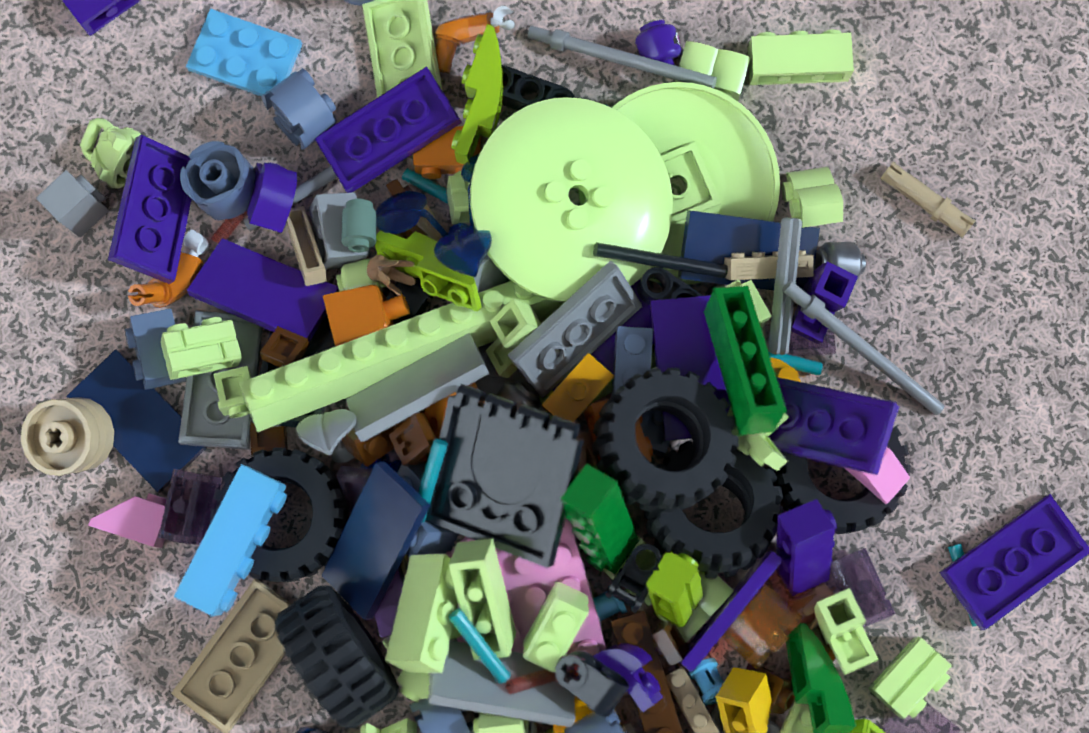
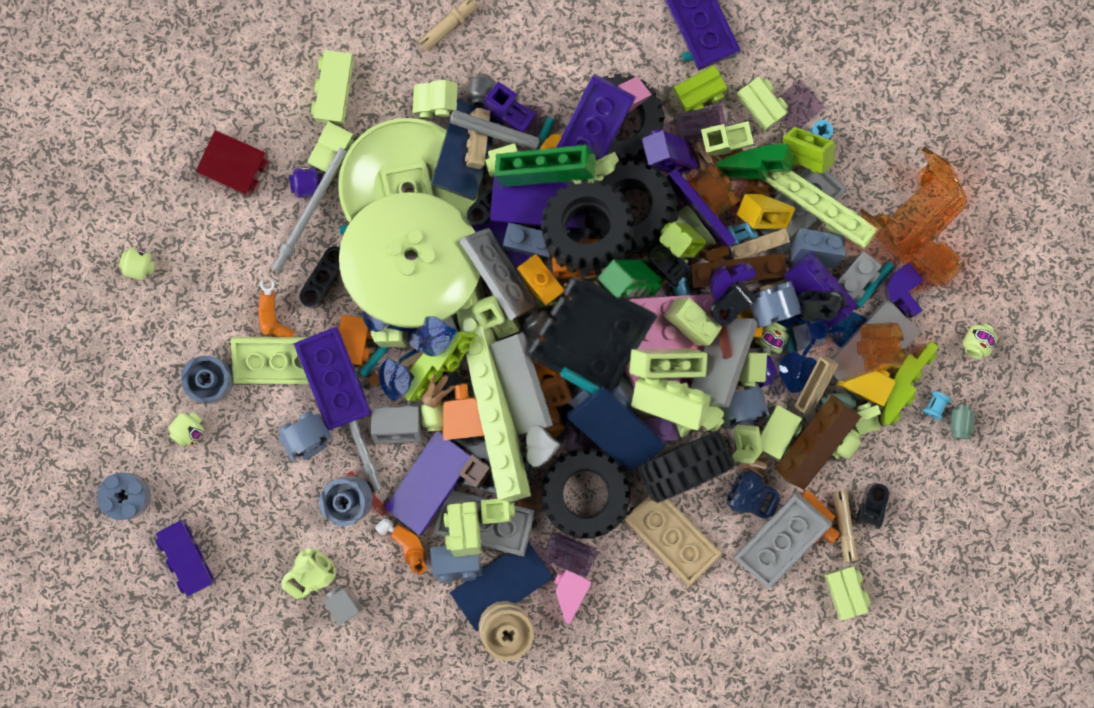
camera: 85 degrees left, 5 degrees up
(152, 212) = (359, 549): dark purple tile -> none
(230, 541) = (600, 522): medium azure brick -> none
(242, 53) = (253, 473): medium azure plate -> none
(272, 196) = (364, 464): dark purple brick -> none
(305, 247) = (403, 449): tan piece -> none
(358, 225) = (399, 407): sand green brick -> none
(479, 646) = (698, 369): teal piece -> none
(485, 86) = (315, 304): lime slope -> none
(660, 260) = (463, 208): black bar -> none
(814, 308) = (514, 113): light grey bar -> none
(911, 580) = (700, 90): none -> lime brick

